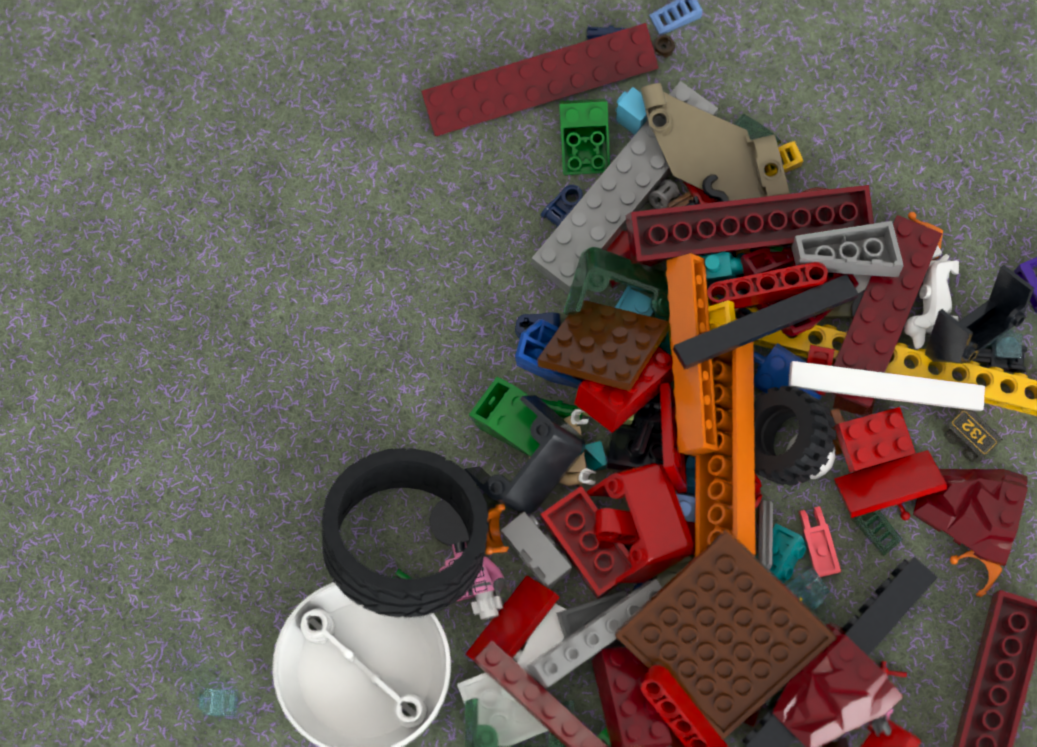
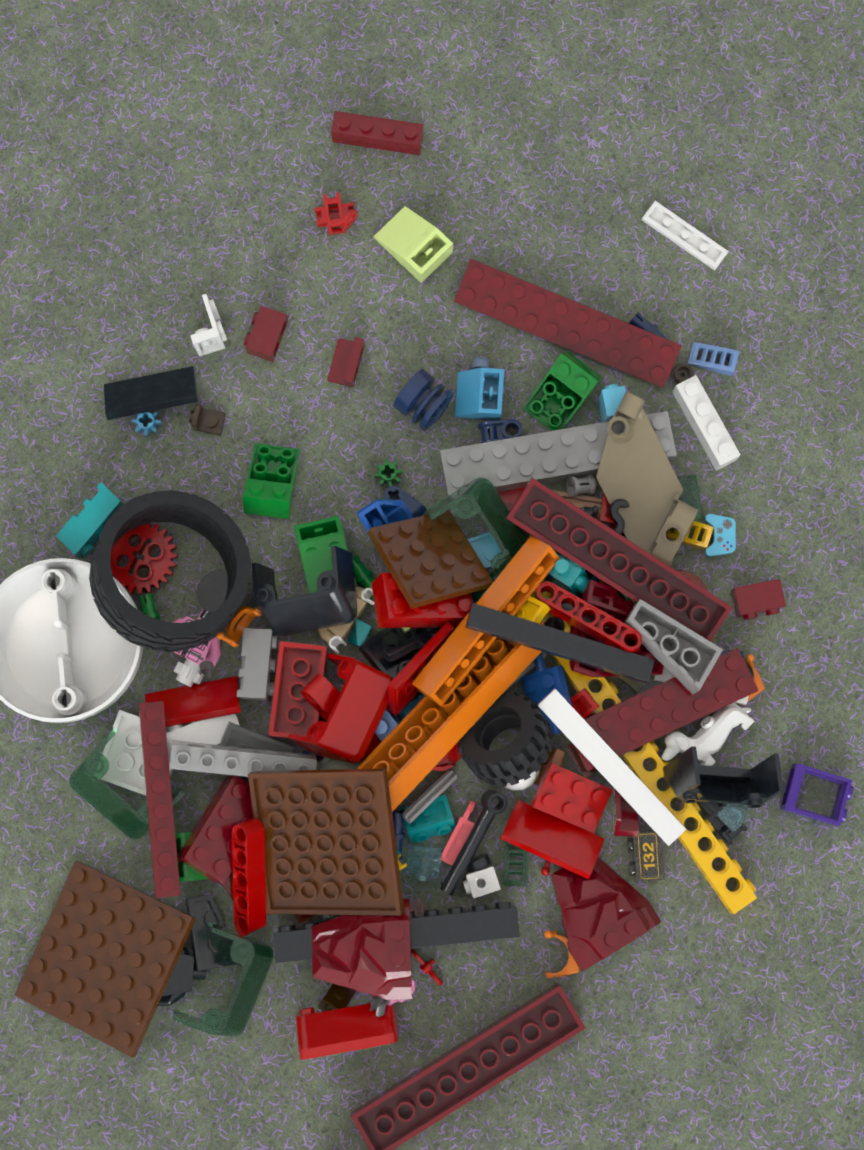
camera: 40 degrees right, 5 degrees up
(255, 409) = (150, 393): none -> black tile
(256, 55) = (377, 133): none -> dark red brick
(268, 320) = (209, 340): none -> white bracket
(269, 441) = (151, 427): none -> dark azure gear
(275, 150) = (336, 216): none -> red piece
(300, 551) = (85, 529): none -> teal wedge
(307, 284) = (266, 333): none -> dark red brick
(320, 393) = (207, 420): none -> dark brown bracket
(363, 116) = (414, 243): none -> yellowish green slope
(385, 542) = (158, 566): none -> red gear
(391, 254) = (346, 361): none -> dark red panel
(416, 397) = (271, 481): none -> green slope
(482, 230) = (421, 398): none -> dark blue wheel
(499, 166) = (479, 362): none -> sand blue hinge
(505, 319) = (384, 480): none -> green gear
(522, 189) = (479, 394): none -> dark azure slope
(716, 67) = (706, 423): none -> white brick
(807, 142) = (723, 535): none -> medium azure piece
(830, 535) = (474, 839): none -> black piece
(850, 553) = (479, 862): none -> black tile
(866, 566) = (481, 882): none -> white brick
(876, 166) = (758, 598): none -> dark red brick
(926, 417) = (624, 816): none -> dark red panel

